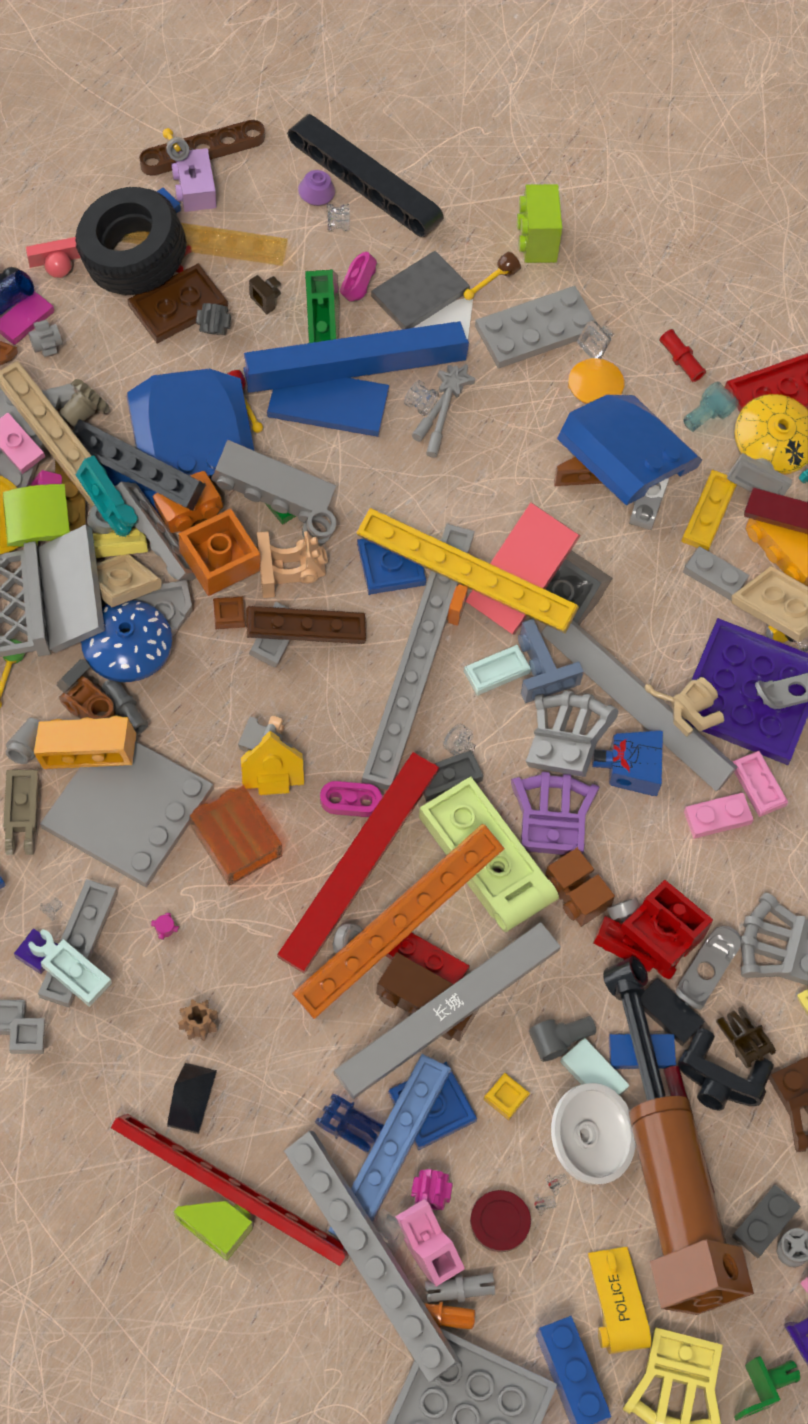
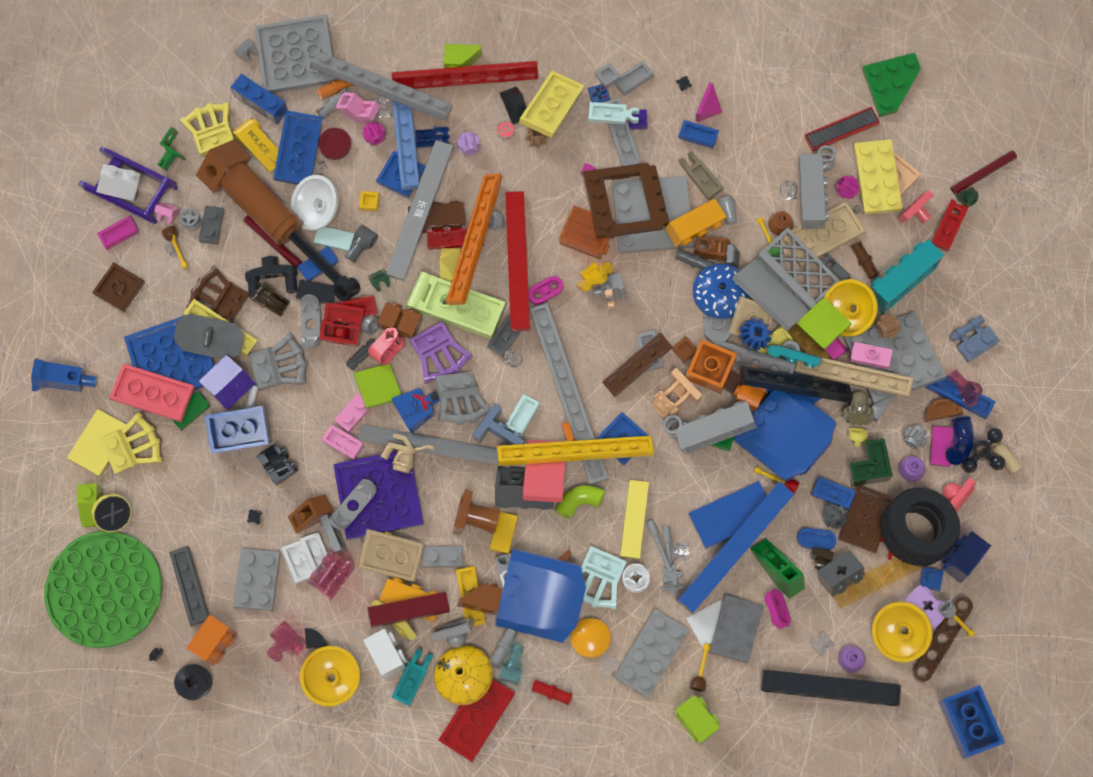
camera: 155 degrees right, 10 degrees up
(61, 1025) = (598, 94): none -> tile
(78, 316) = (909, 472): none -> medium lavender cone
(104, 175) = (964, 559): none -> clear blue brick
(107, 383) = (858, 435): none -> light yellow tile
(119, 330) = (876, 468): none -> dark green panel
(133, 550) = (762, 338): none -> blue gear
(142, 1043) = (551, 104): none -> light yellow plate
(190, 853) = (600, 206): none -> reddish brown hinge
(192, 345) = (833, 493): none -> blue plate
(233, 1065) = (505, 130): none -> tile
(243, 167) = (889, 636): none -> yellow dish
(245, 55) = (971, 722): none -> blue brick
(245, 252) = (841, 573): none -> dark grey brick
(252, 319) = (817, 538): none -> blue tile
(303, 1074) = (469, 143): none -> lavender gear
(447, 468) = (634, 519): none -> light yellow tile
(455, 923) = (448, 262): none -> light yellow slope
(487, 522) = (579, 496): none -> lime cylinder
(500, 414) = (629, 583): none -> white wheel
(525, 435) = (606, 568): none -> light aqua plate
(562, 1248) = (297, 147): none -> blue plate
(569, 968) = (377, 277): none -> clear green tile
(620, 551) = (504, 533): none -> yellow tile
(624, 861) = (386, 348): none -> coral piece
(639, 885) = (359, 356): none -> dark grey axle
(654, 586) = (475, 515): none -> dark orange plant
(666, 821) = (377, 385): none -> lime tile
(702, 486) = (482, 599): none -> dark orange slope
(710, 427) = (503, 648): none -> light grey pin

